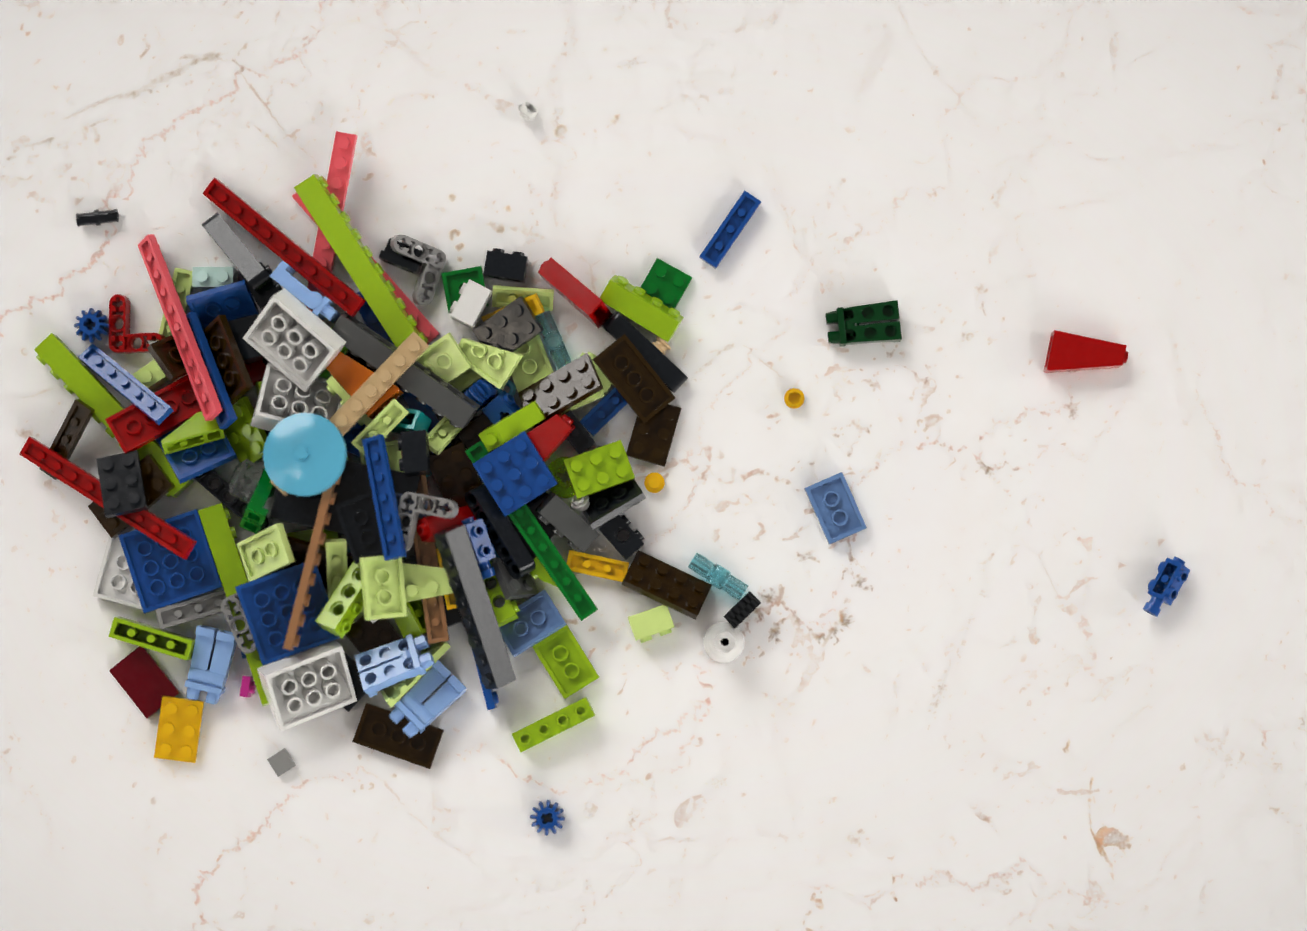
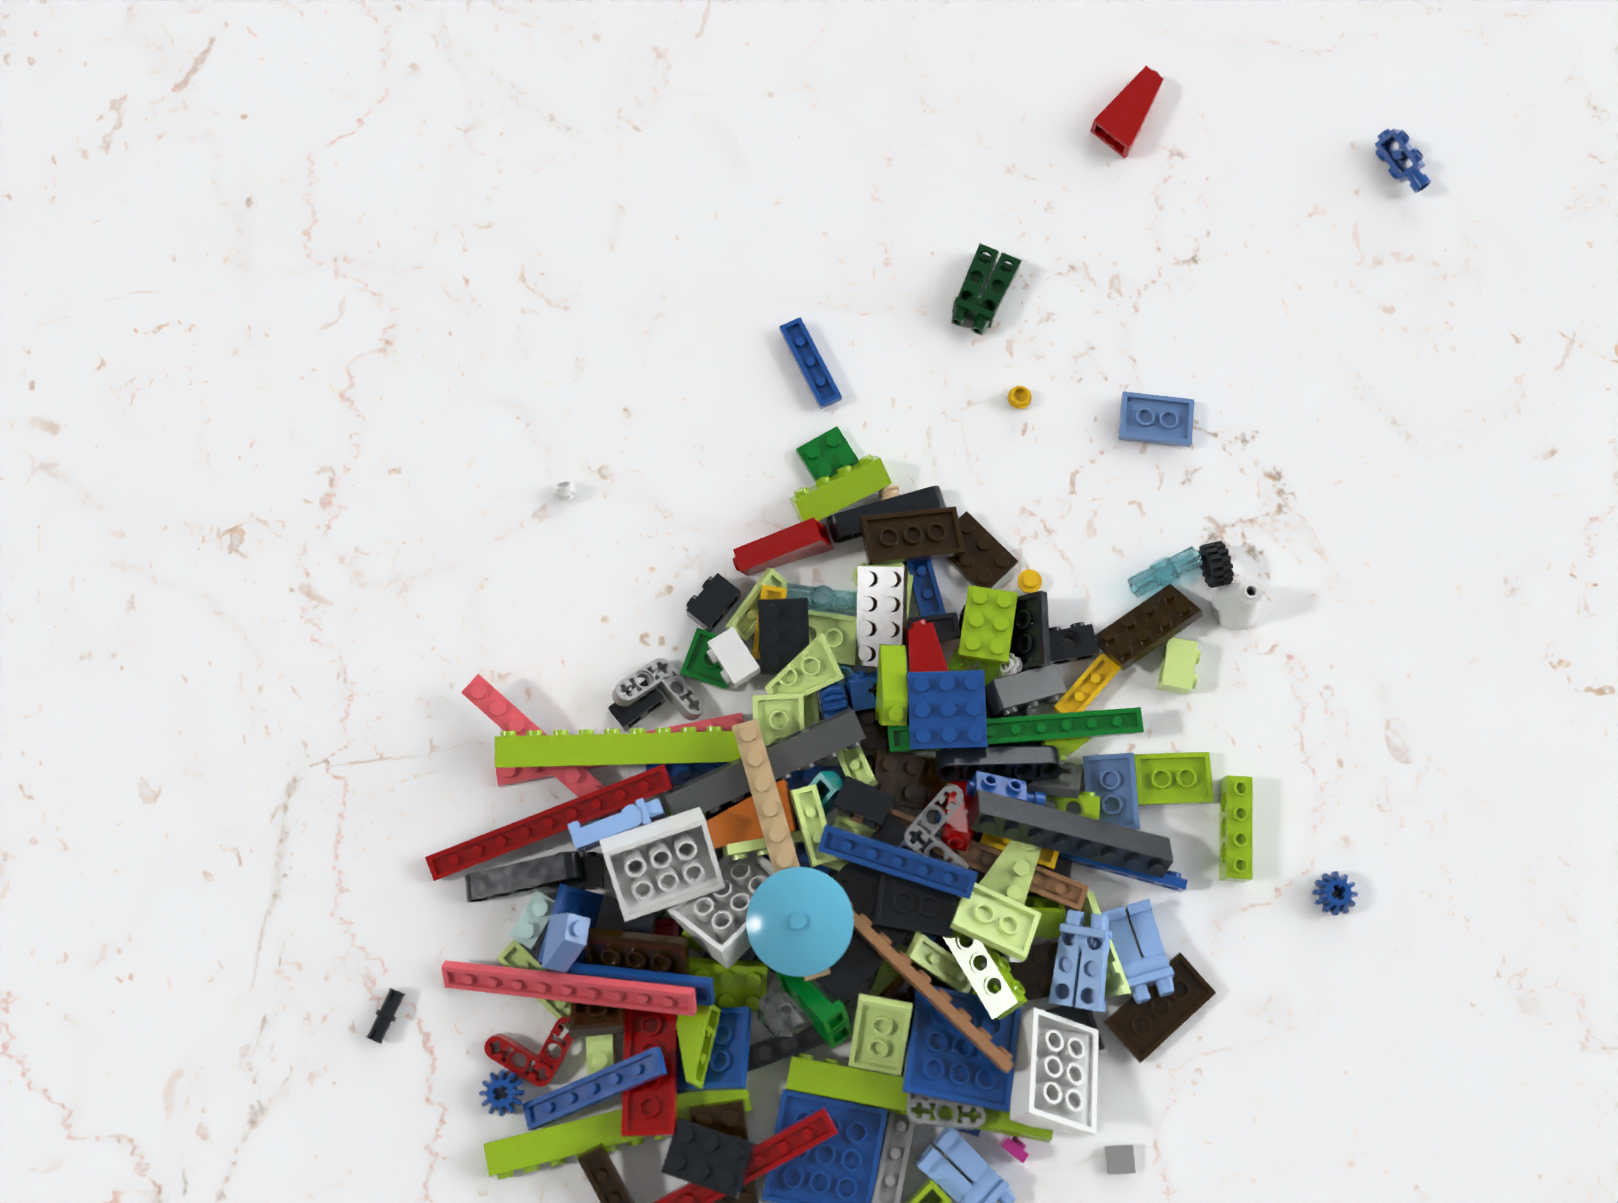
camera: 65 degrees left, 10 degrees down
(206, 306) = (564, 941): none -> medium blue slope

